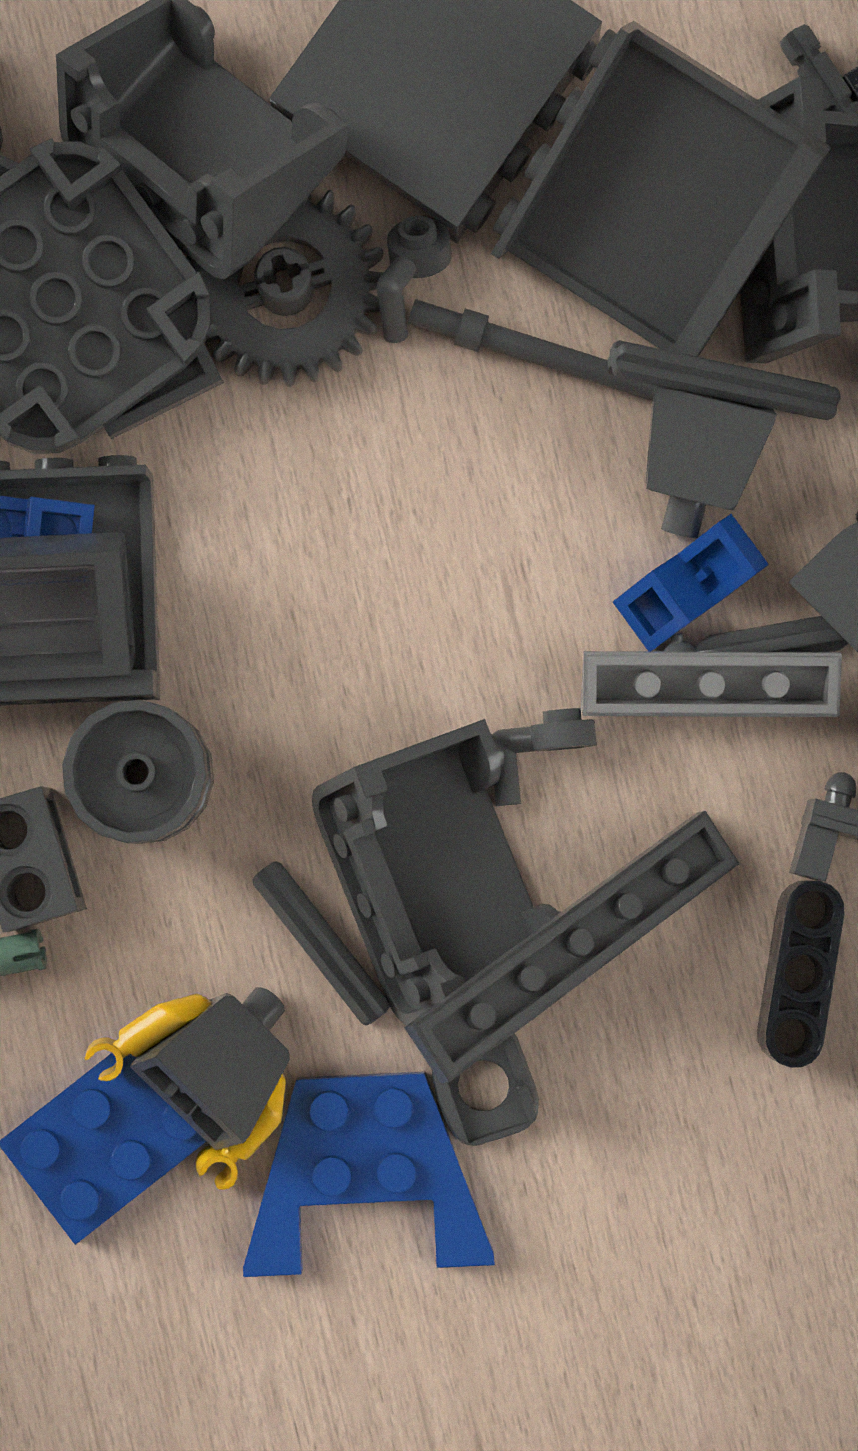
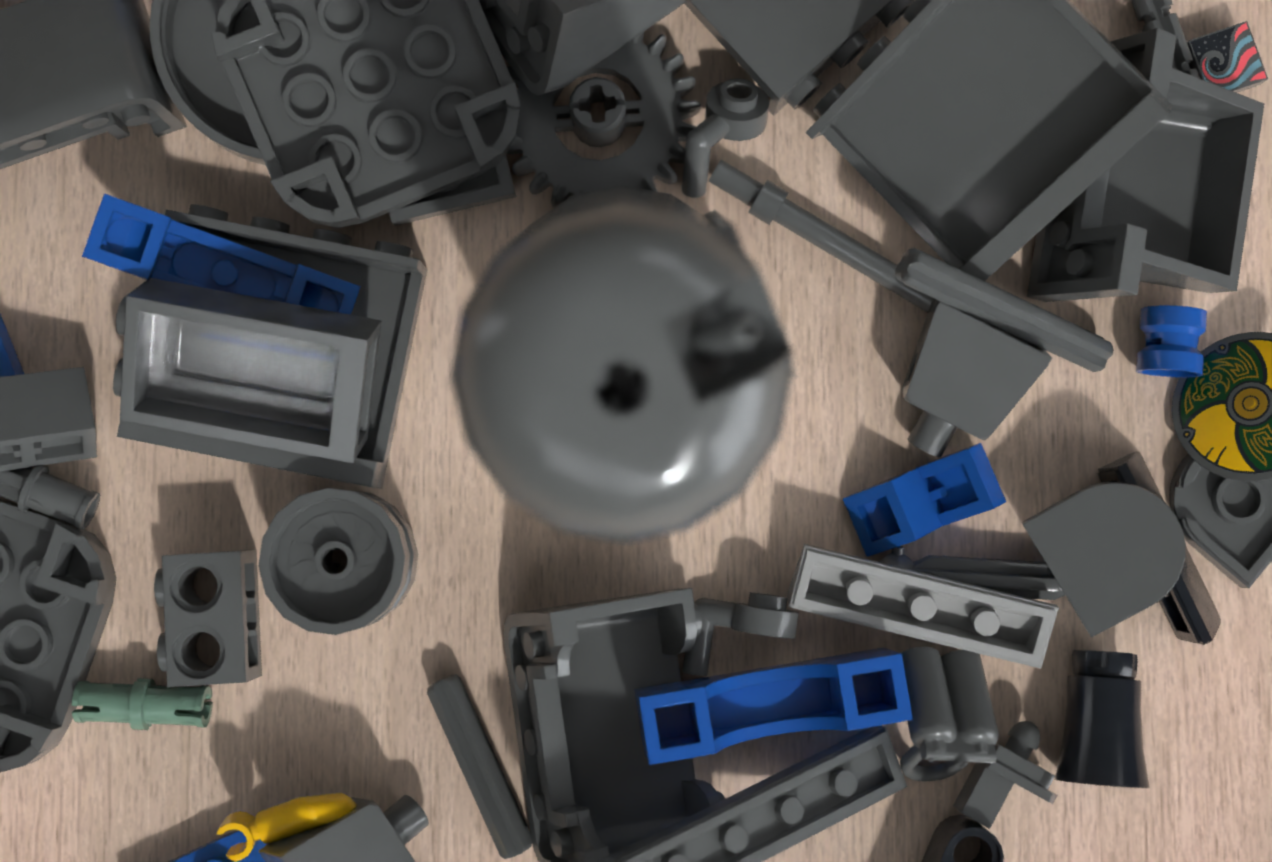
camera: 10 degrees right, 0 degrees up
(367, 501) = (622, 366): none -> dark grey piece
(588, 811) = (807, 695): none -> blue arch
(757, 780) = (949, 713): none -> dark grey piece

